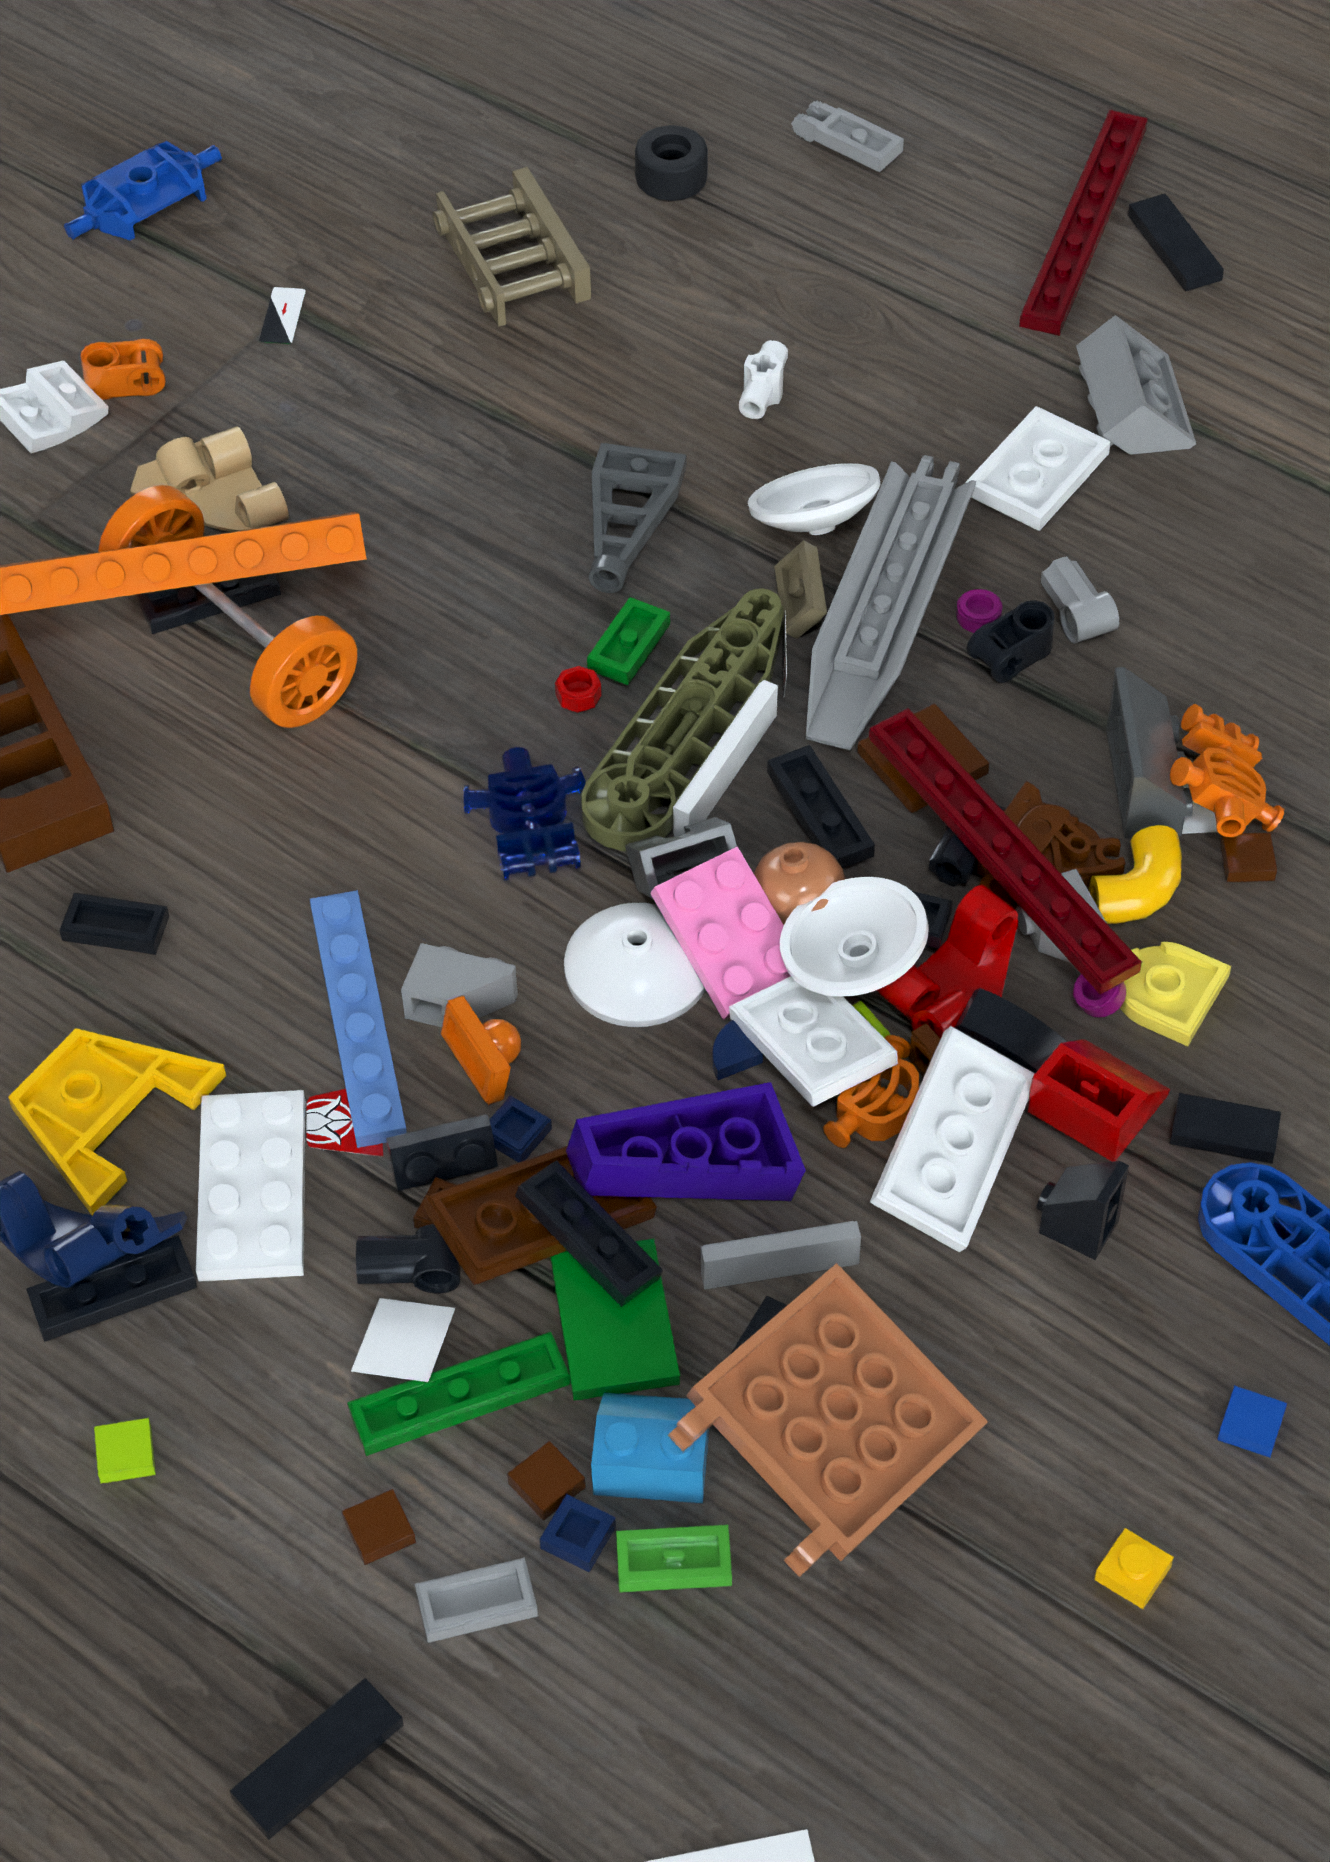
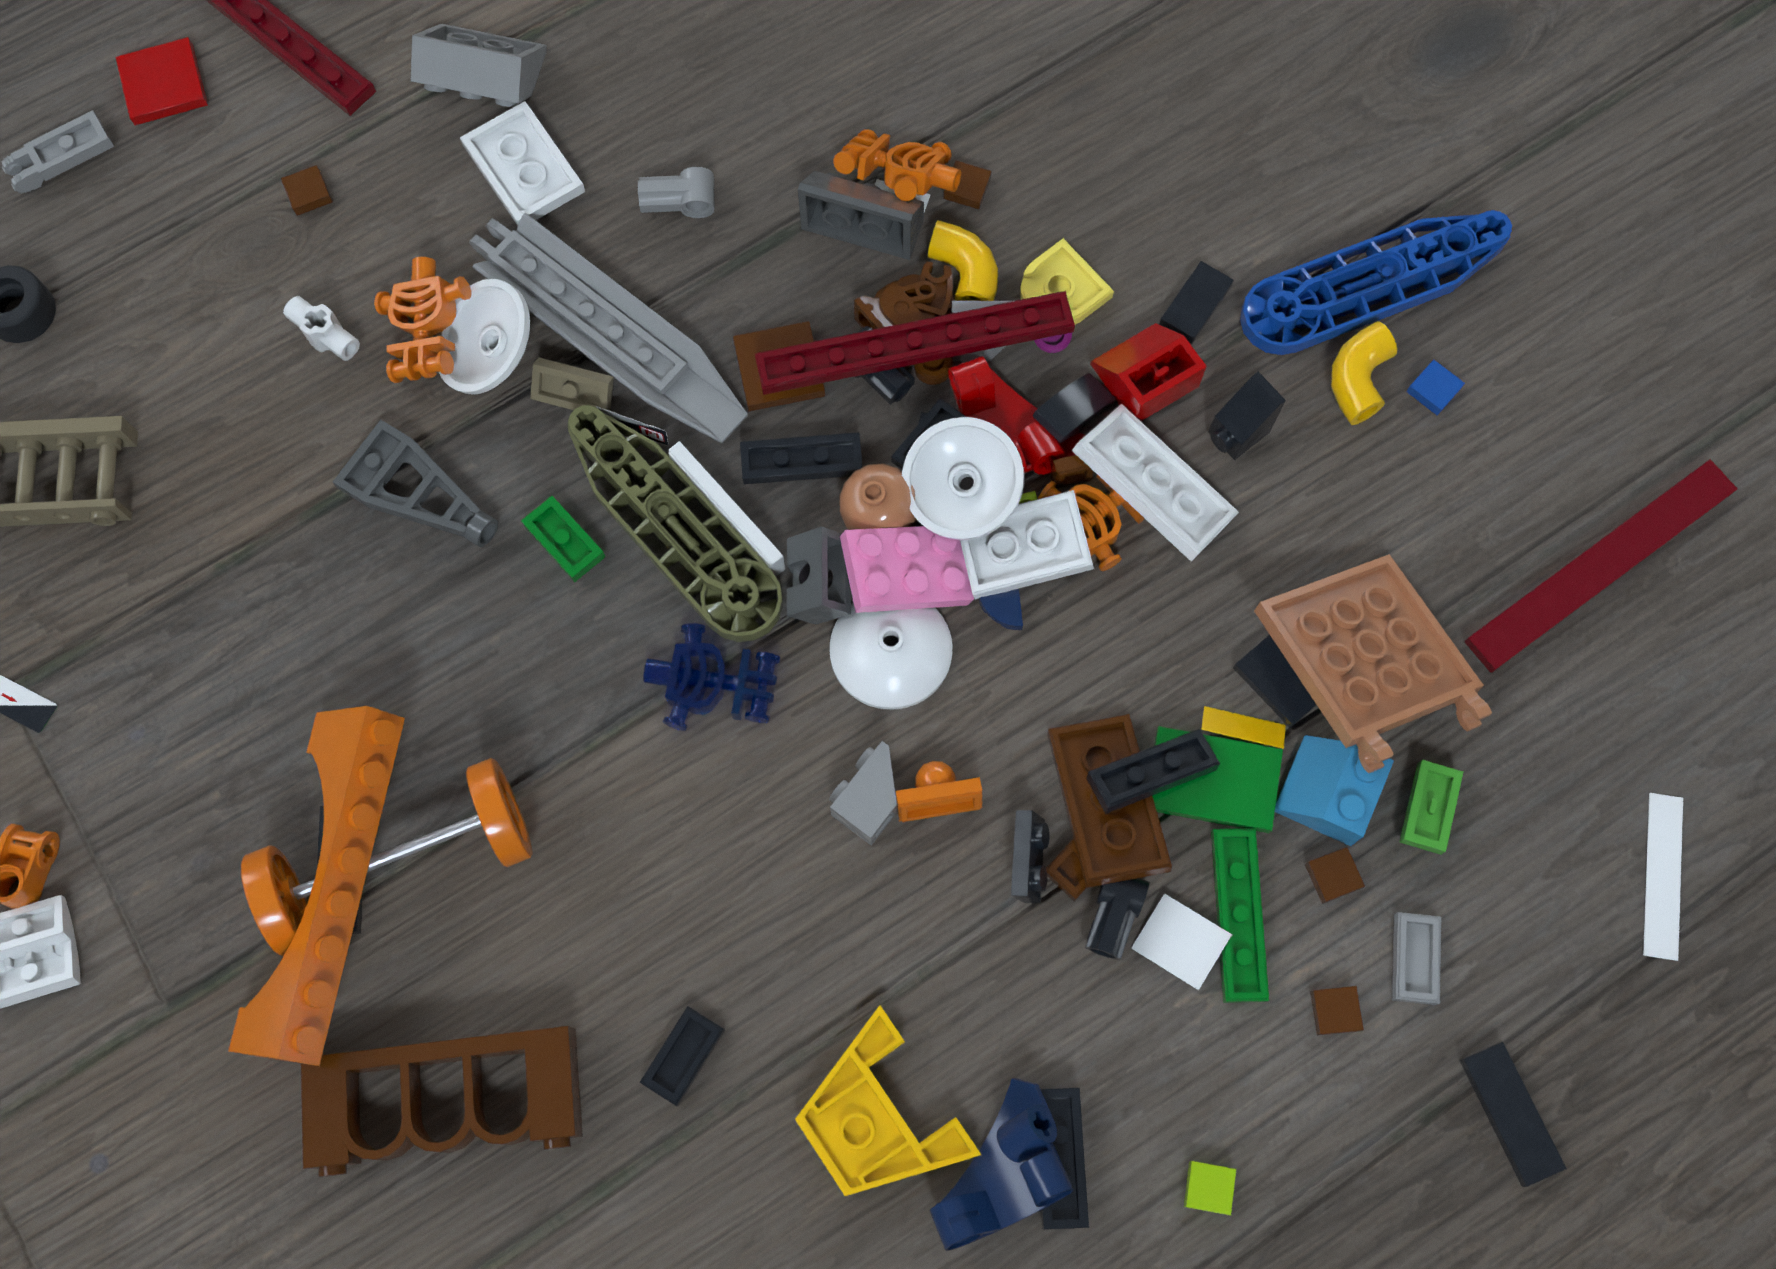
camera: 70 degrees left, 20 degrees up
(218, 479) = (216, 826): tan panel -> none
(251, 1186) = (995, 1016): white plate -> none
(331, 1125) = (954, 922): sticker -> none
(357, 1019) = (860, 882): medium blue plate -> none
(518, 1129) = (1015, 793): dark blue tile -> none
(577, 1533) = (1385, 867): dark blue tile -> none
(578, 689) = (596, 596): red tile -> none
(690, 1148) = (1106, 664): dark purple wedge -> none
(692, 1330) = (1243, 727): none -> yellow sticker
(780, 1254) = (1206, 641): light grey tile -> none
(819, 443) = (432, 313): none -> orange piece
(912, 320) = (306, 190): none -> reddish brown tile
(970, 178) = (161, 81): none -> red tile
(977, 609) = (647, 267): magenta tile -> none
(1014, 640) = (699, 258): black piece -> none
(1106, 1688) = (1600, 566): none -> dark red tile
(1133, 1568) = (1522, 508): yellow plate -> none
(1217, 1314) = (1353, 371): none -> yellow cylinder

